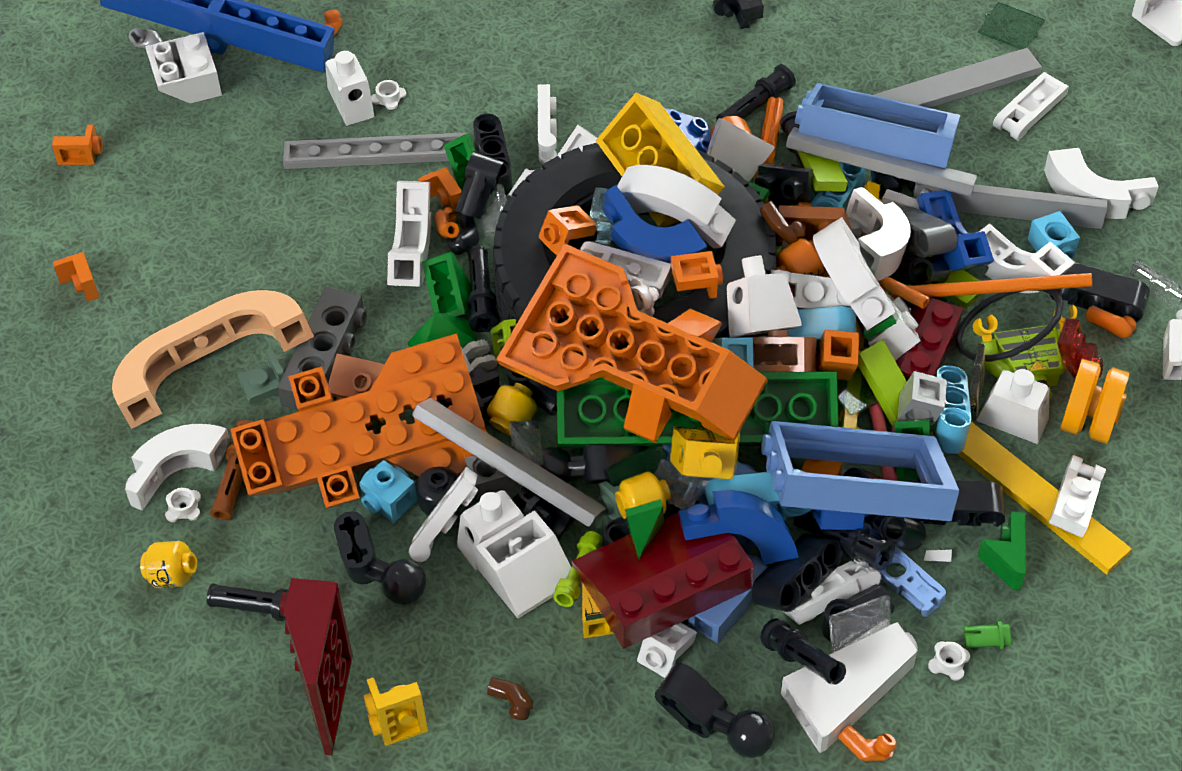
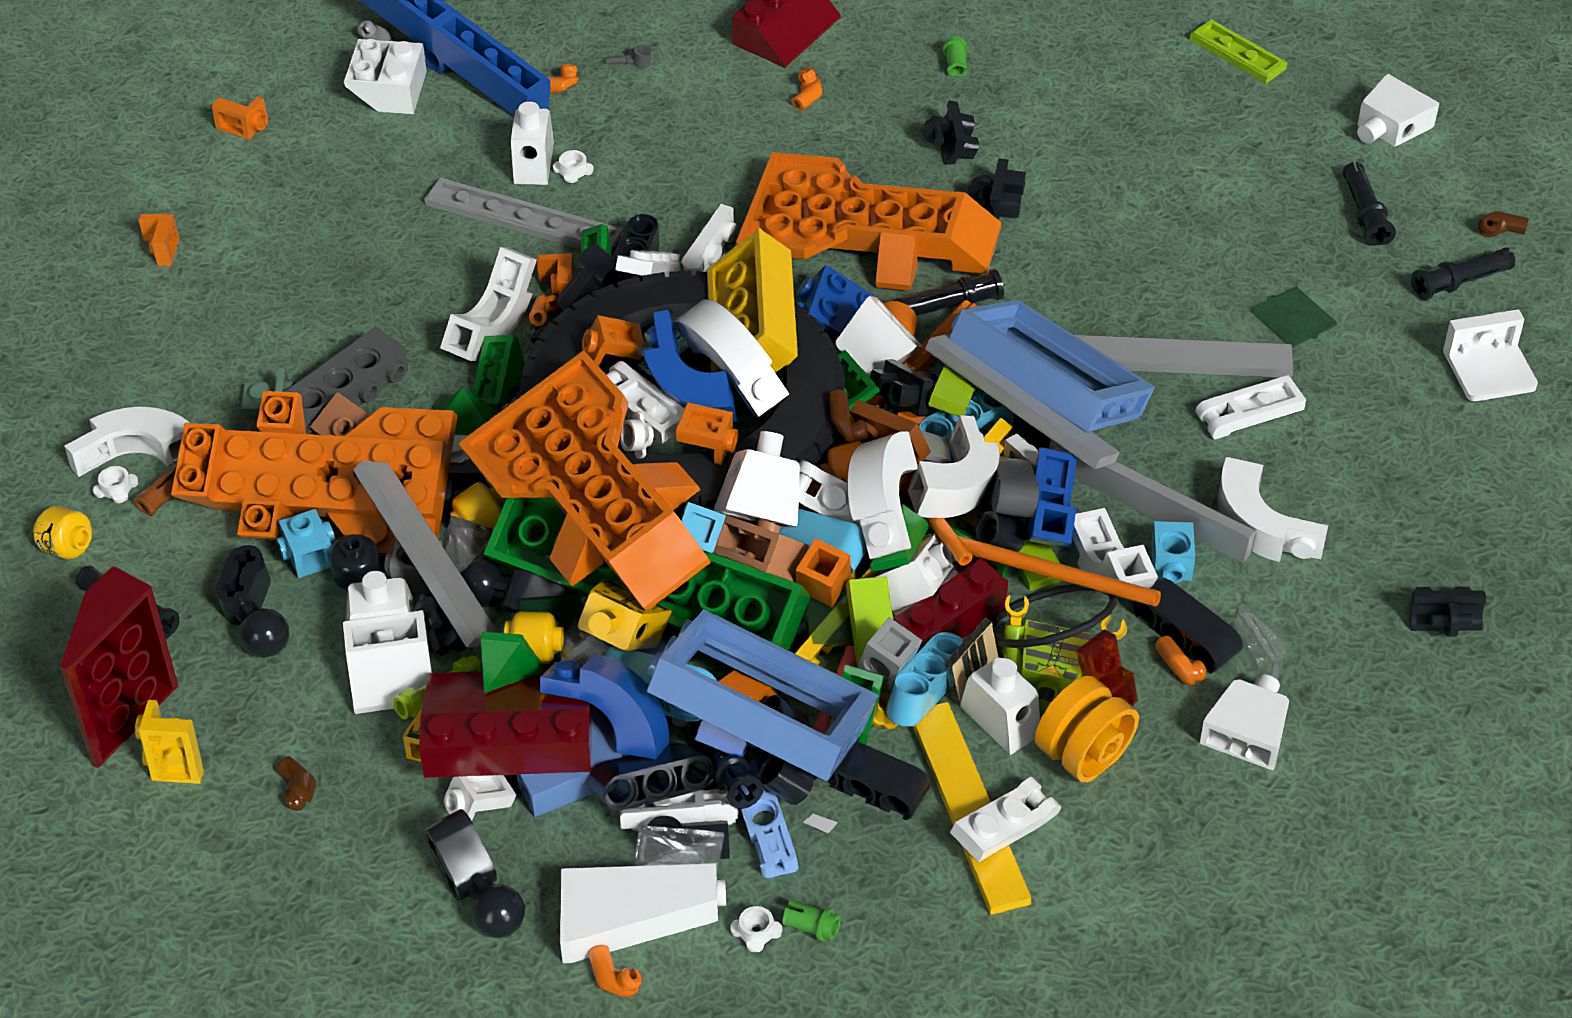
camera: 25 degrees right, 5 degrees down
(198, 335) = (186, 336): light nougat arch -> none
(443, 515) = (334, 582): white plate -> none
(526, 153) = (649, 262): none -> white plate
(609, 63) = (819, 206): none -> orange piece
(794, 646) = (595, 846): black pin -> none
(1007, 554) = (892, 850): green slope -> none

